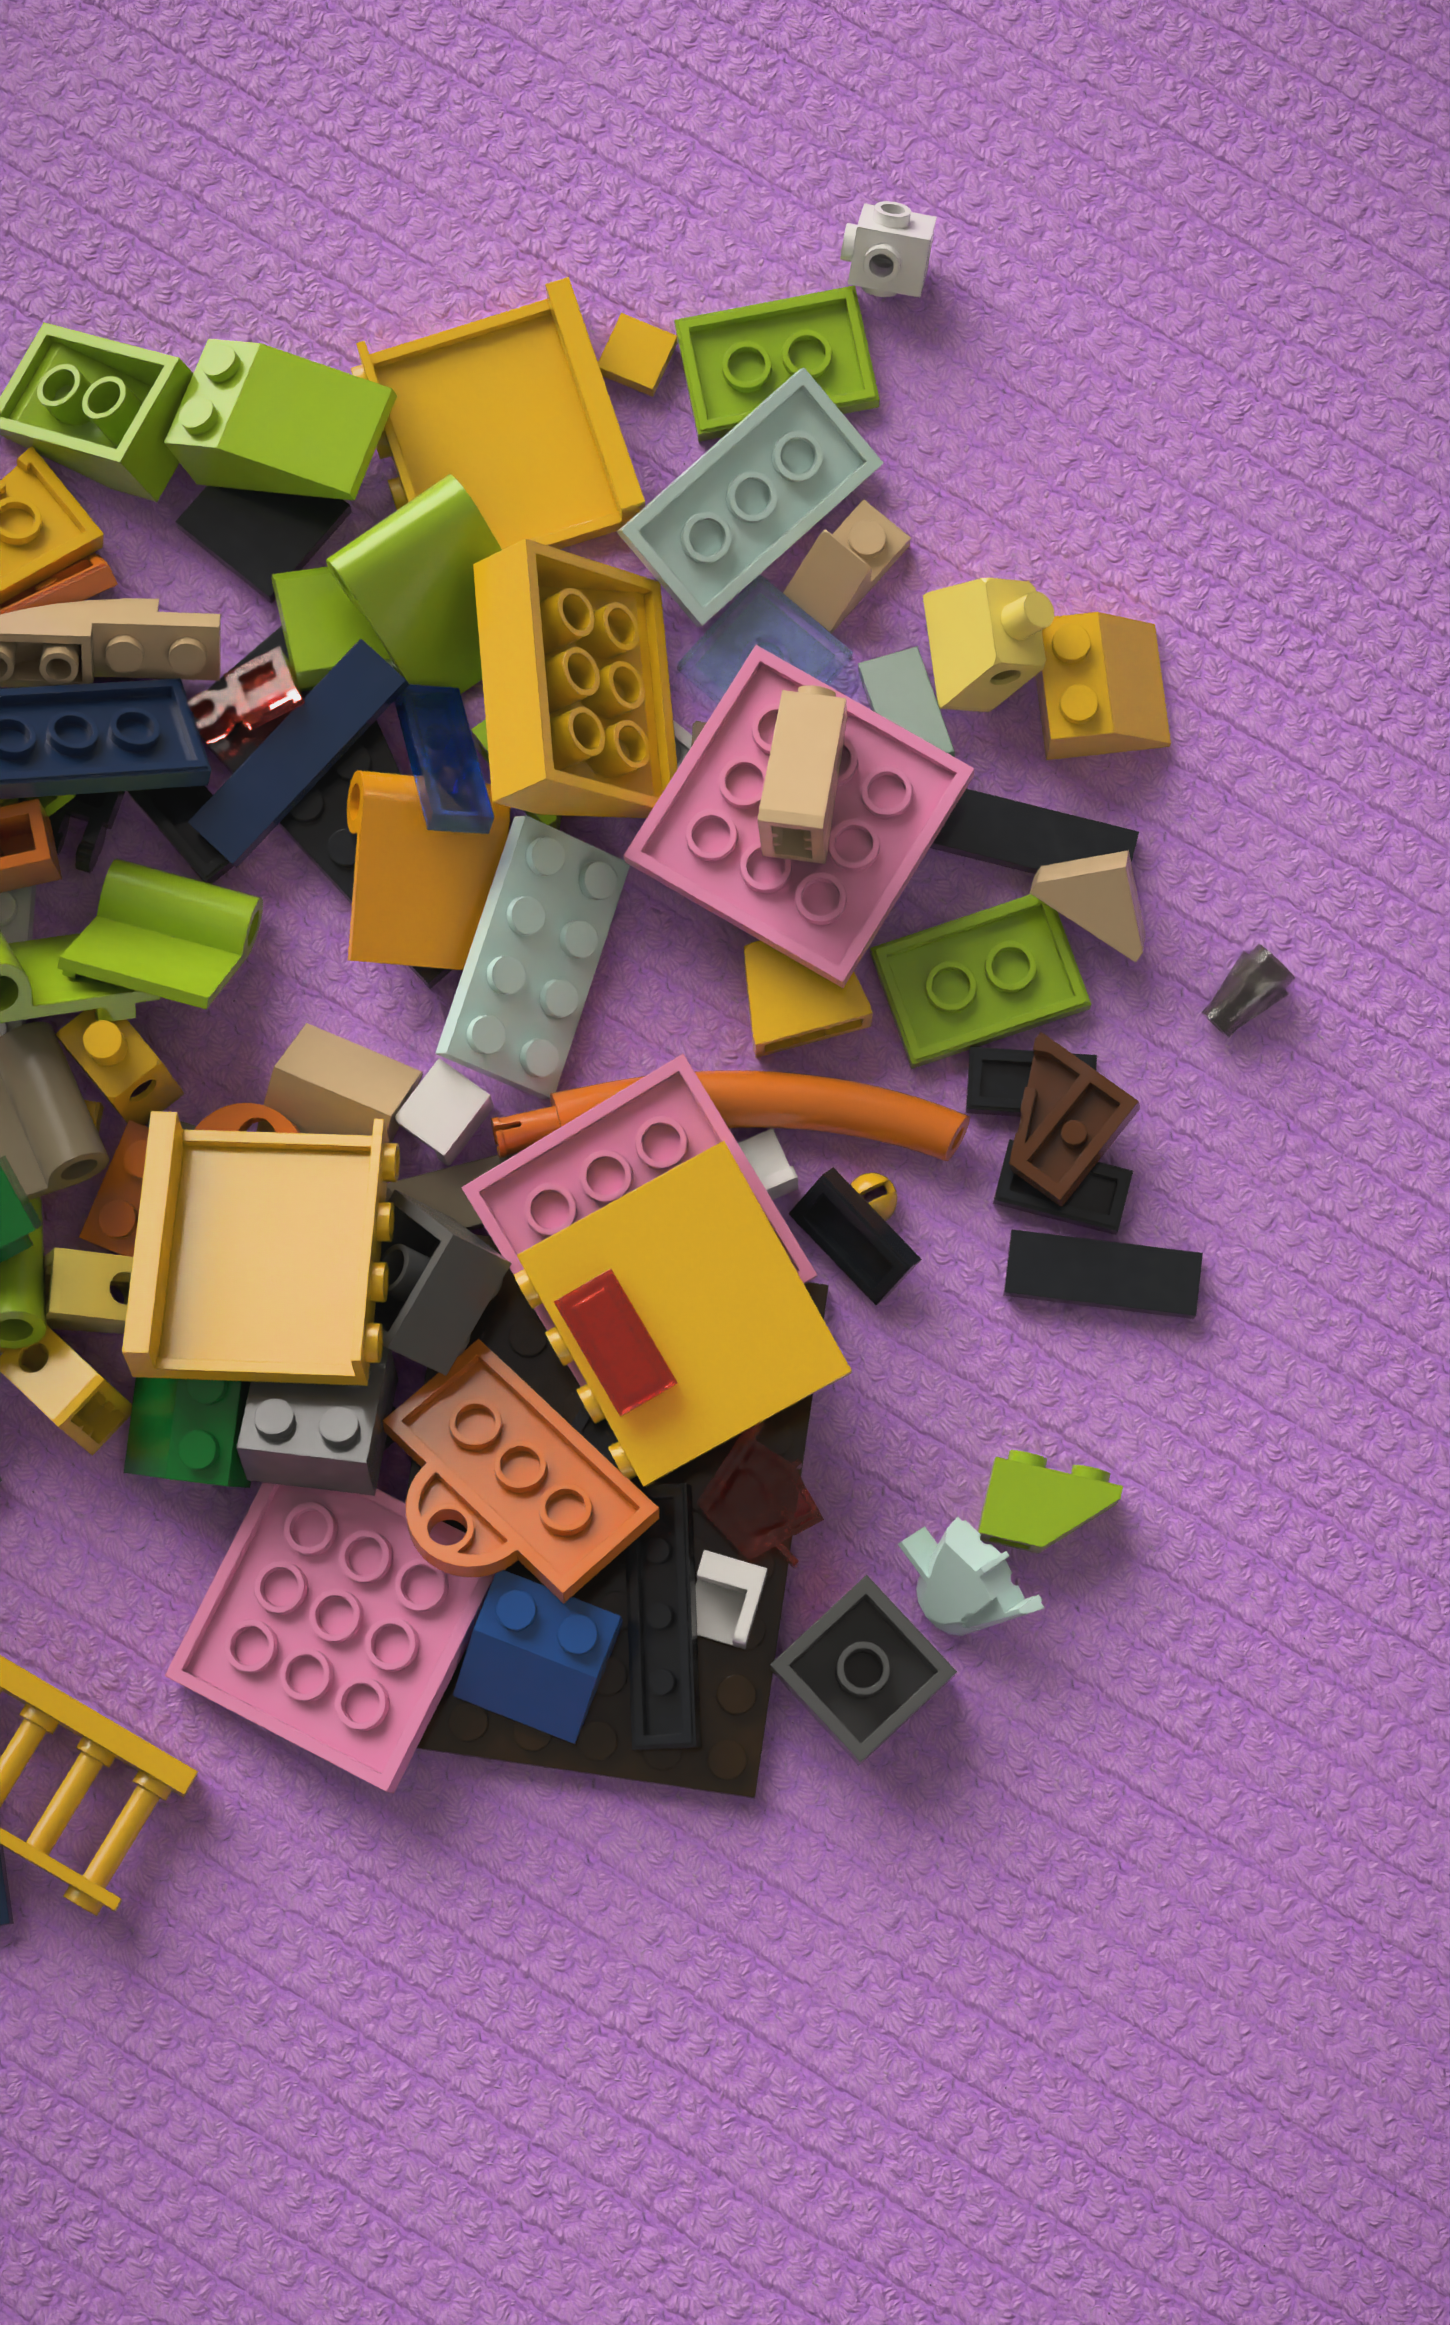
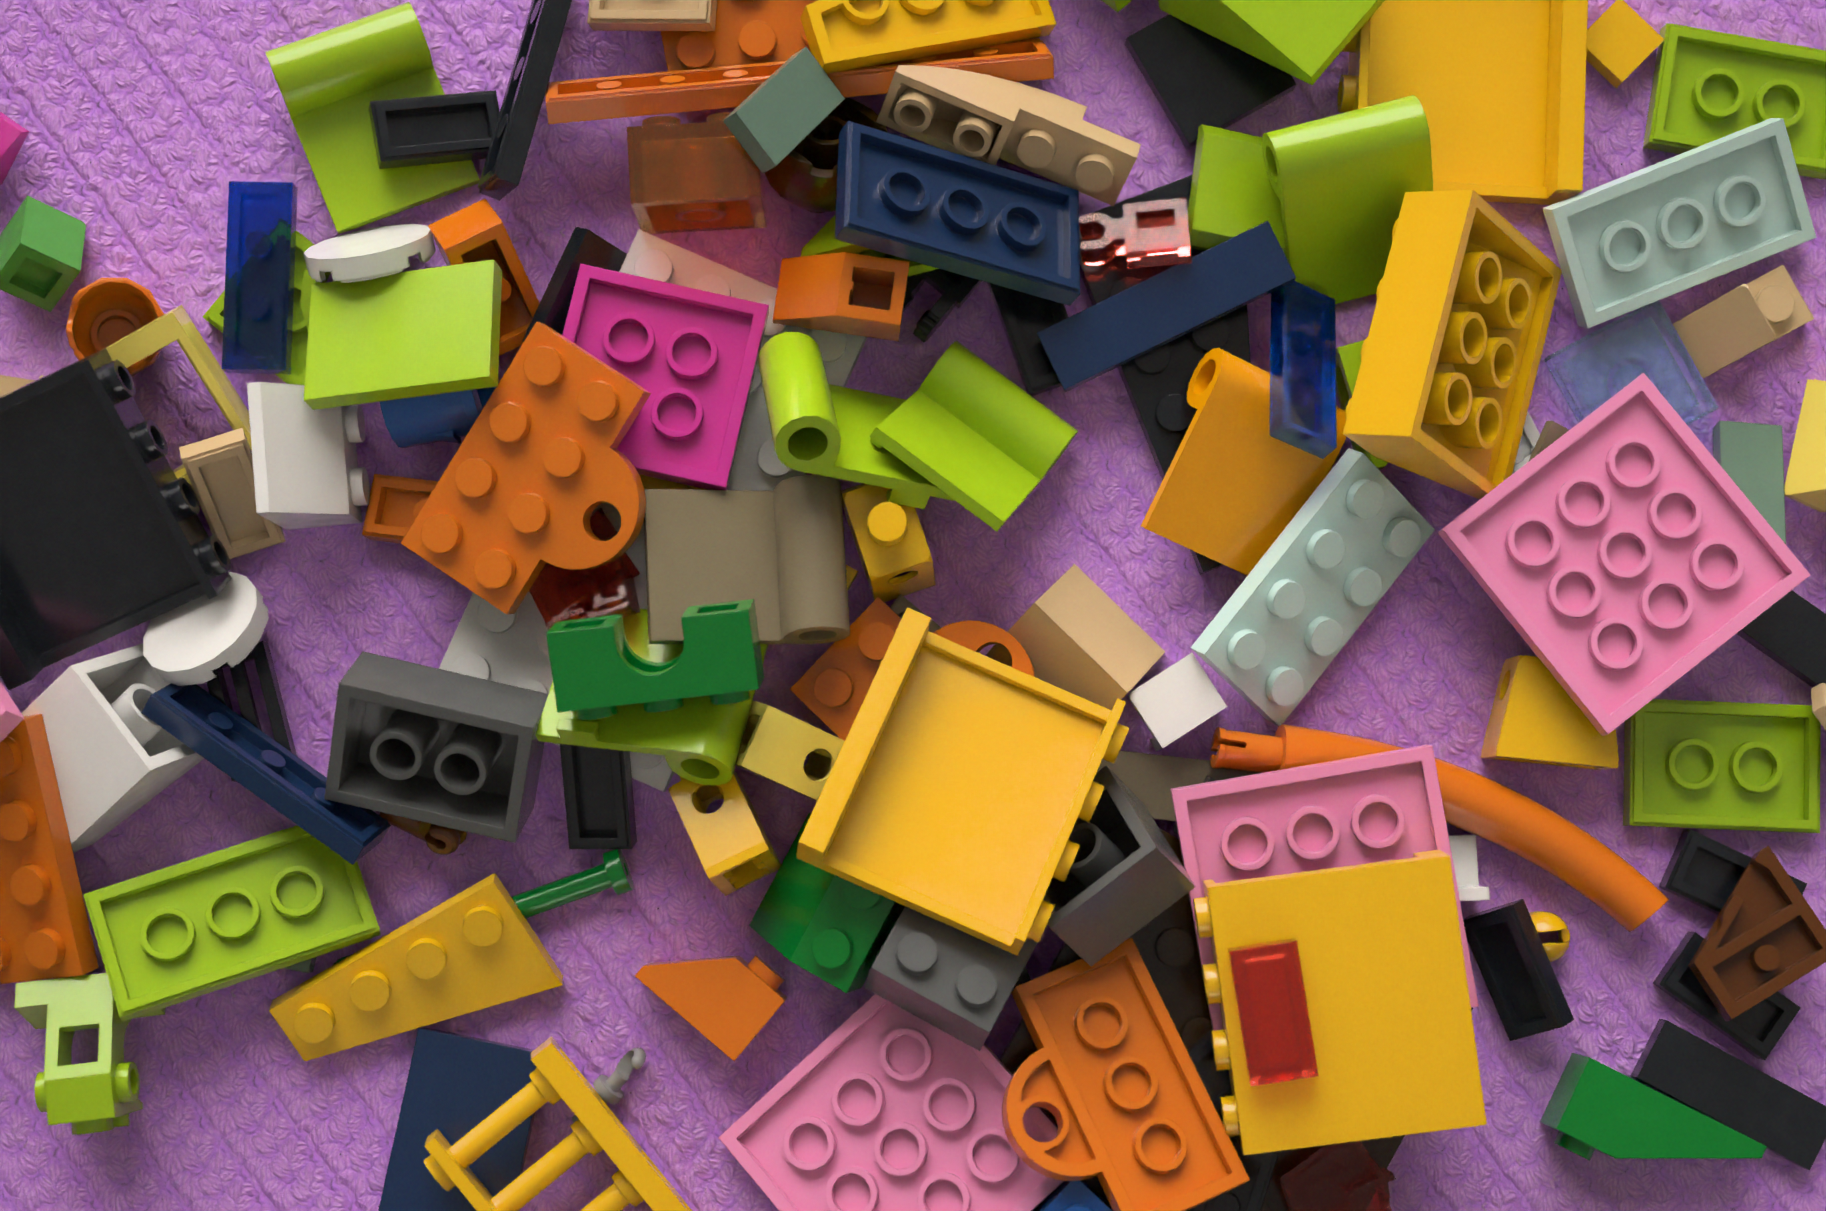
camera: 10 degrees right, 5 degrees up
(48, 1669) = (610, 1087): none -> light grey hand
(117, 1544) = (718, 996): none -> orange slope
(802, 775) = (1653, 524): tan slope -> none
(1005, 1331) = (1629, 1120): none -> green slope

